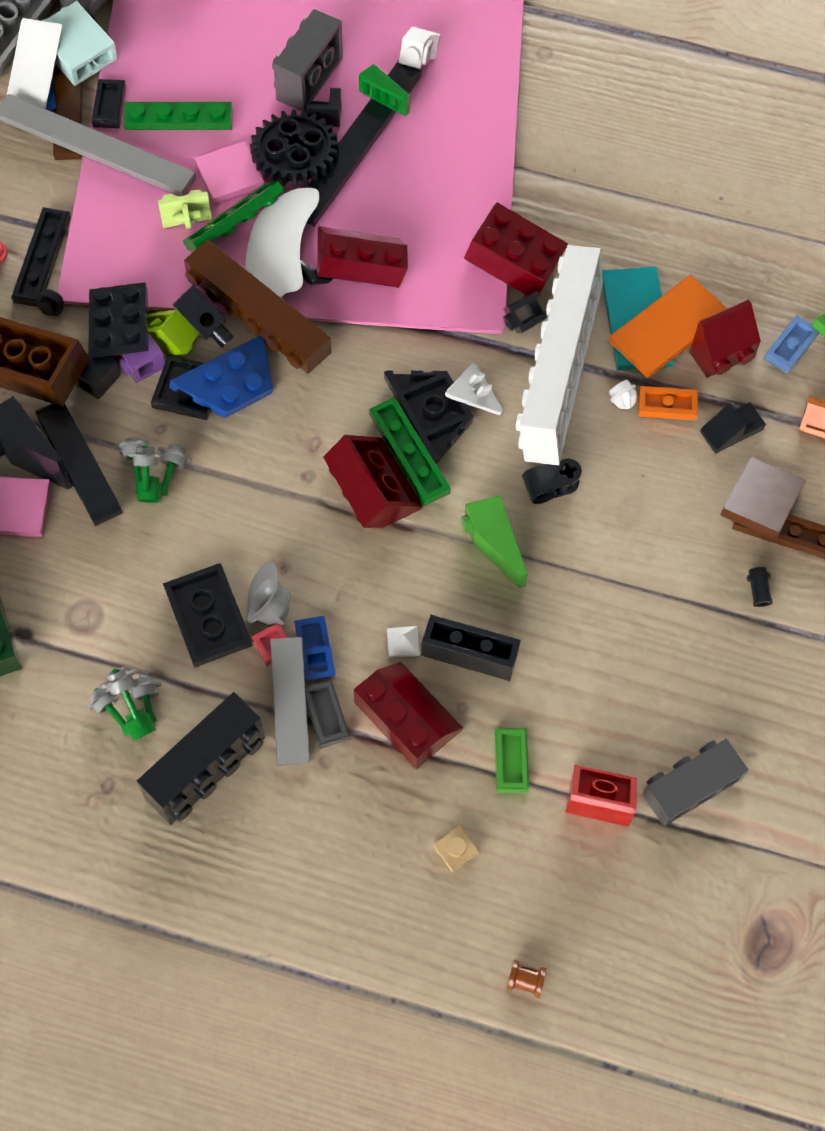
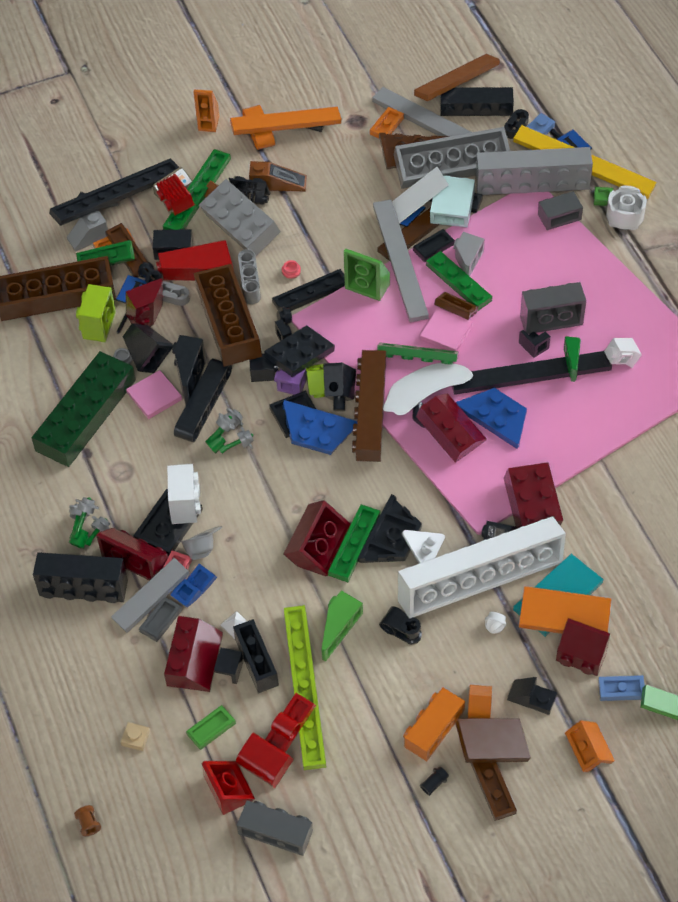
camera: 55 degrees right, 10 degrees down
(71, 320) = (282, 330): none -> black plate
(91, 184) = (365, 275): none -> bright green slope
(154, 79) = (468, 251): none -> light grey slope
(184, 209) = (397, 327): yellowish green hips -> none
(193, 559) = (183, 493): none -> white piece
(209, 140) = (456, 305): none -> reddish brown tile
(217, 677) = (136, 553): none -> dark red slope
(294, 148) = (503, 341): black gear -> none
(381, 207) = (497, 414): none -> blue wing
(454, 682) = (229, 663): none -> black panel
(545, 628) = (304, 684): none -> lime plate
(600, 727) = (267, 756): none -> red plate
(667, 403) = (512, 649): orange plate -> none
(695, 537) = (433, 723): none -> orange brick
(705, 479) = (479, 702): none -> orange slope

